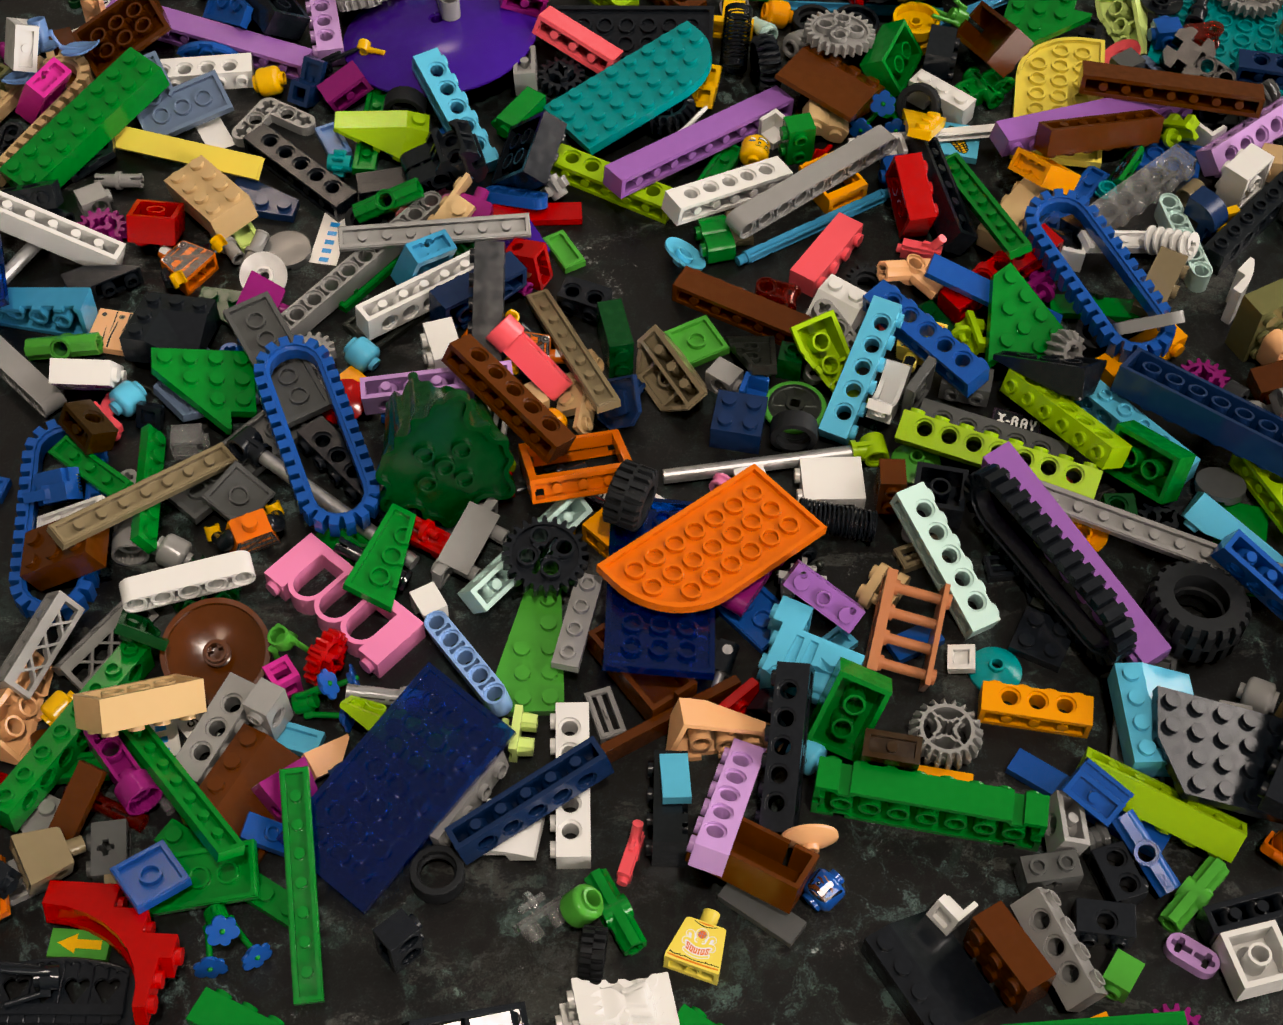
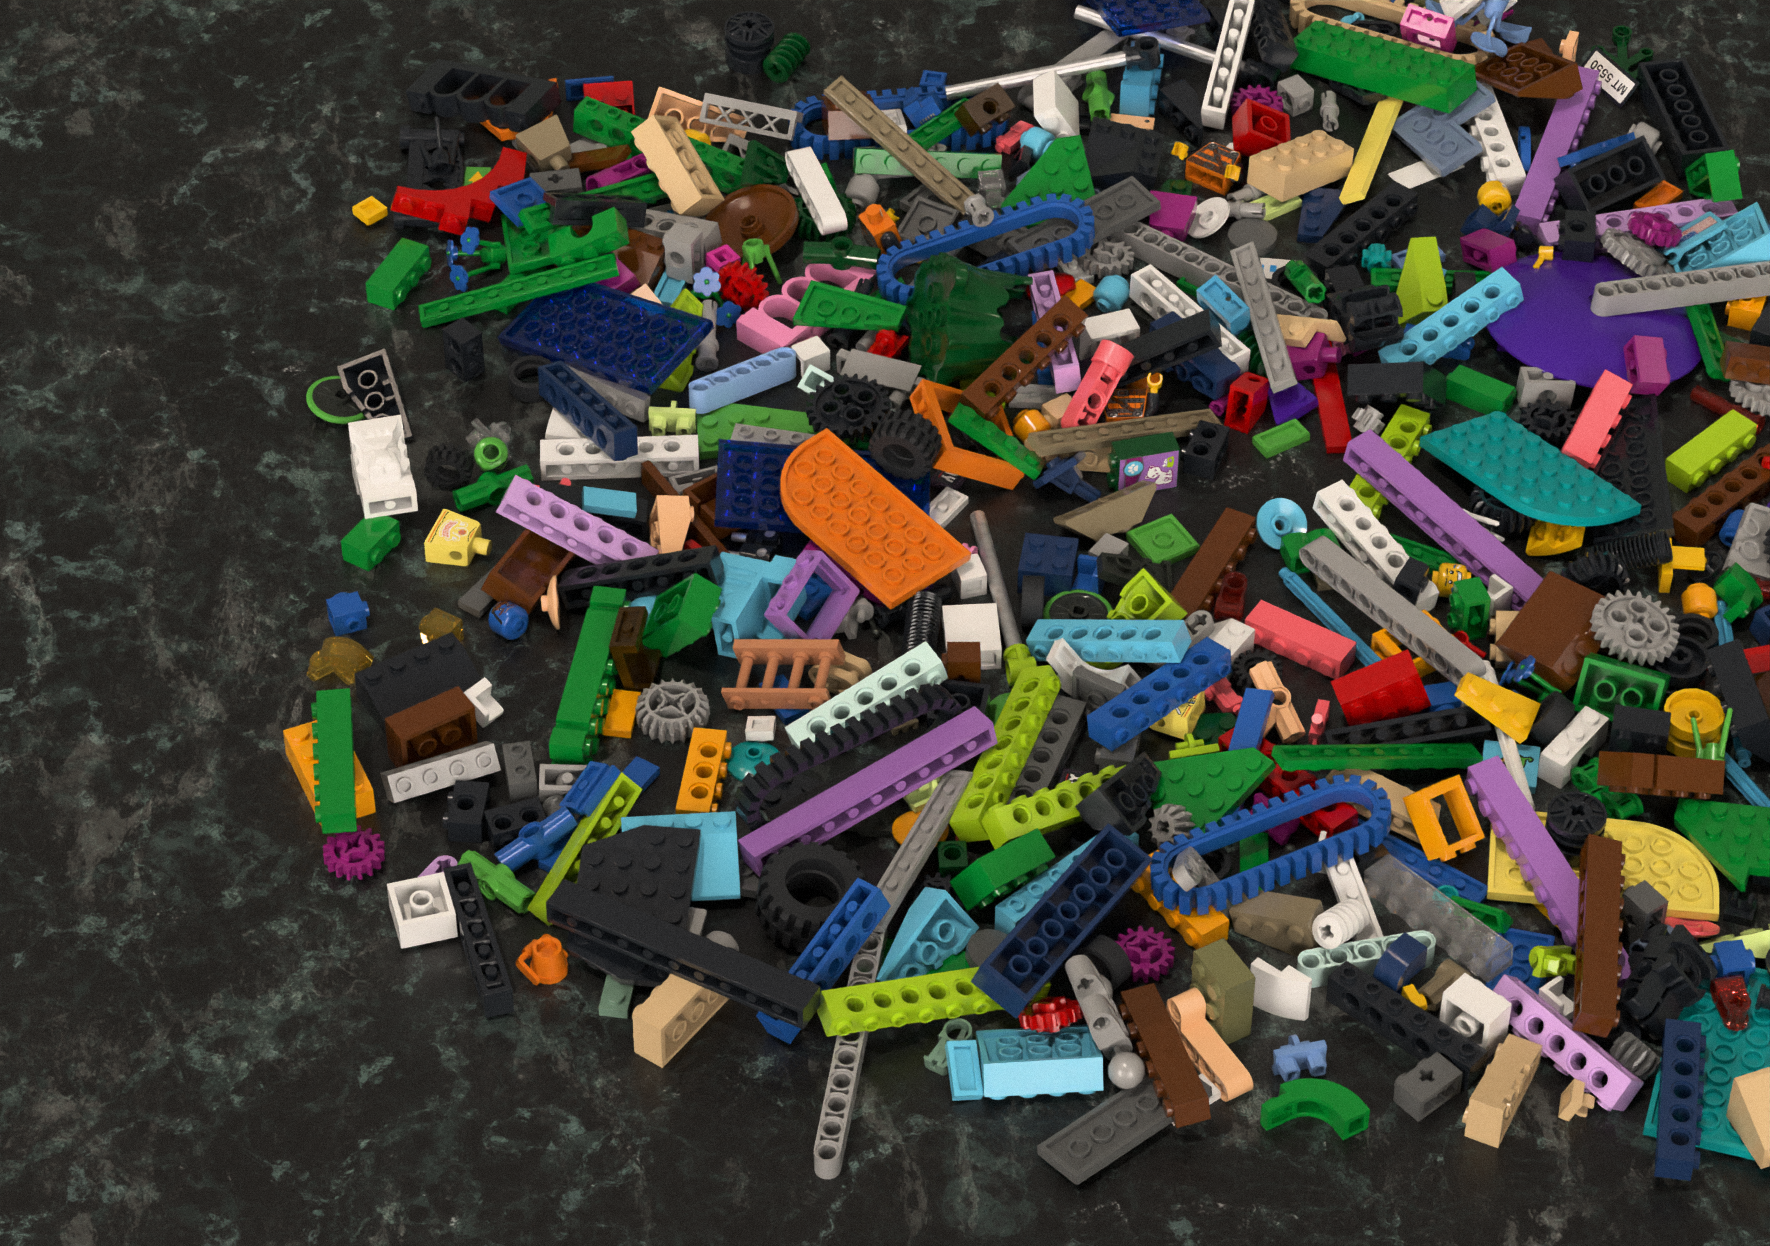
camera: 90 degrees right, 10 degrees down
(42, 297) = (1144, 55): none -> flat silver piece
(212, 779) = (579, 208): none -> black fence
(260, 767) = (607, 234): none -> green arch
(276, 423) = (978, 210): none -> light grey bush
(300, 123) = (1455, 209): light grey beam -> none
(300, 548) = (841, 254): none -> dark green piece
(350, 21) = (1577, 235): none -> black brick
(517, 197) = (1340, 395): blue beam -> none
(594, 439) = (997, 441): none -> green plate
(762, 26) = (1668, 593): light aqua cone -> none
(779, 163) = (1412, 580): none -> black brick
(841, 959) = (439, 624): none -> clear yellow brick
(1050, 89) = (1570, 821): none -> black wheel
(1098, 133) = (1511, 865): reddish brown brick -> none
(1121, 975) = (415, 819): bright green brick -> none

